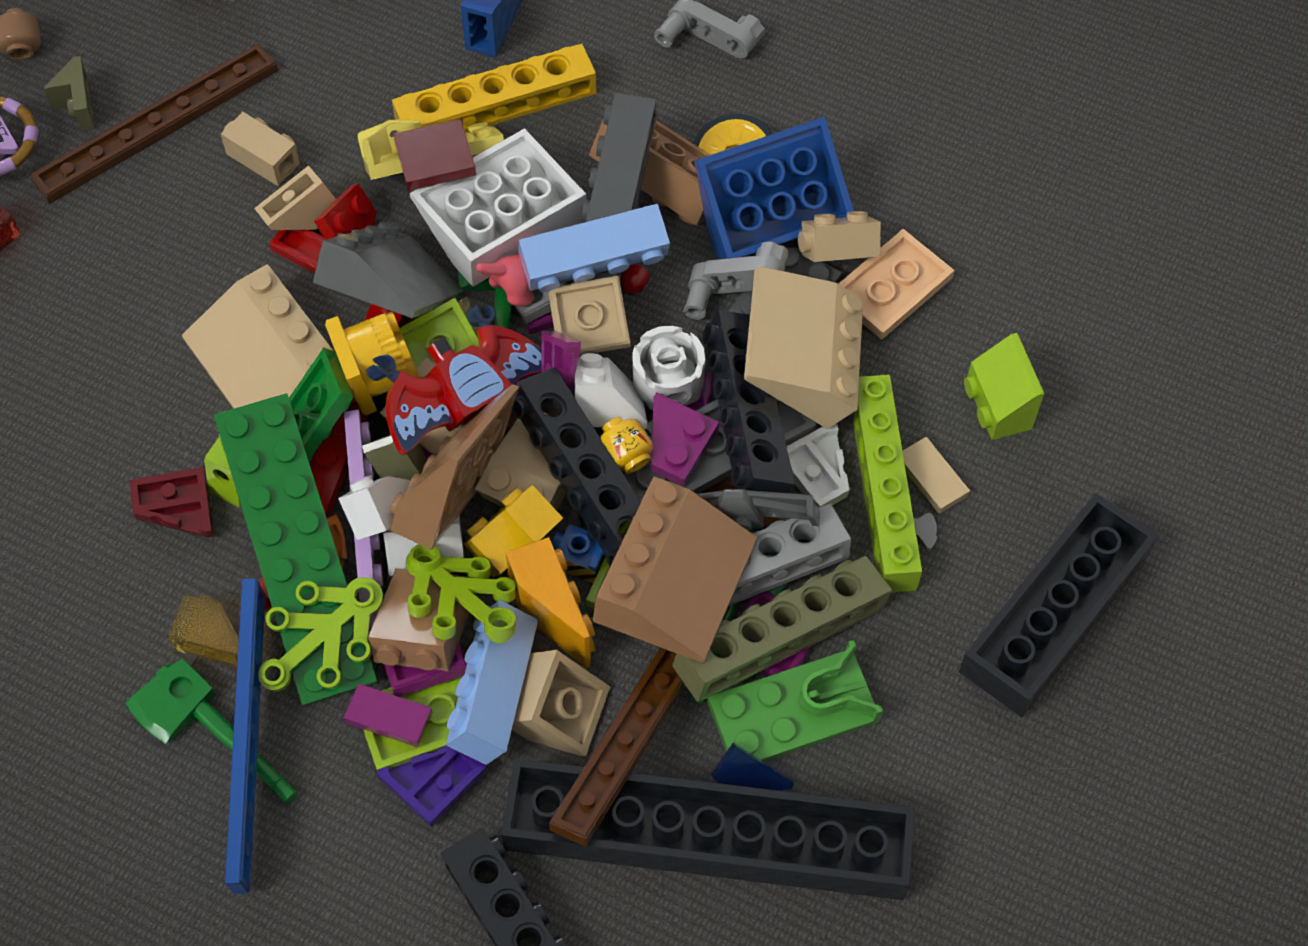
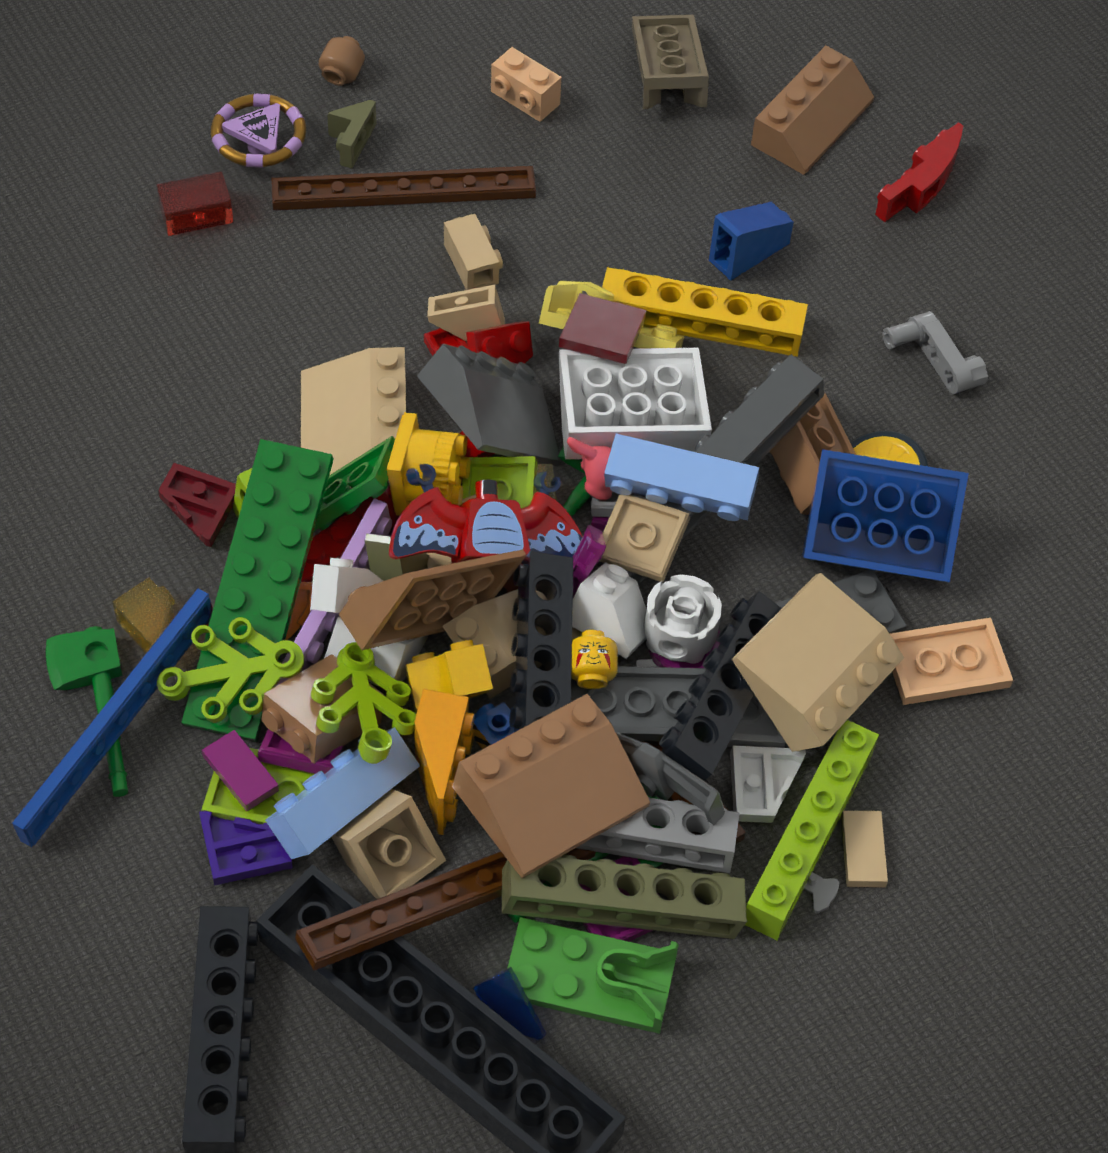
camera: 30 degrees right, 5 degrees down
(634, 279) = (713, 529): red hinge -> none
(678, 439) = (645, 682): magenta wing -> none
(729, 276) = (796, 571): light grey beam -> none
(840, 238) = (920, 592): tan brick -> none
(1004, 389) = (980, 809): lime slope -> none
(1057, 604) = (894, 1026): black brick -> none

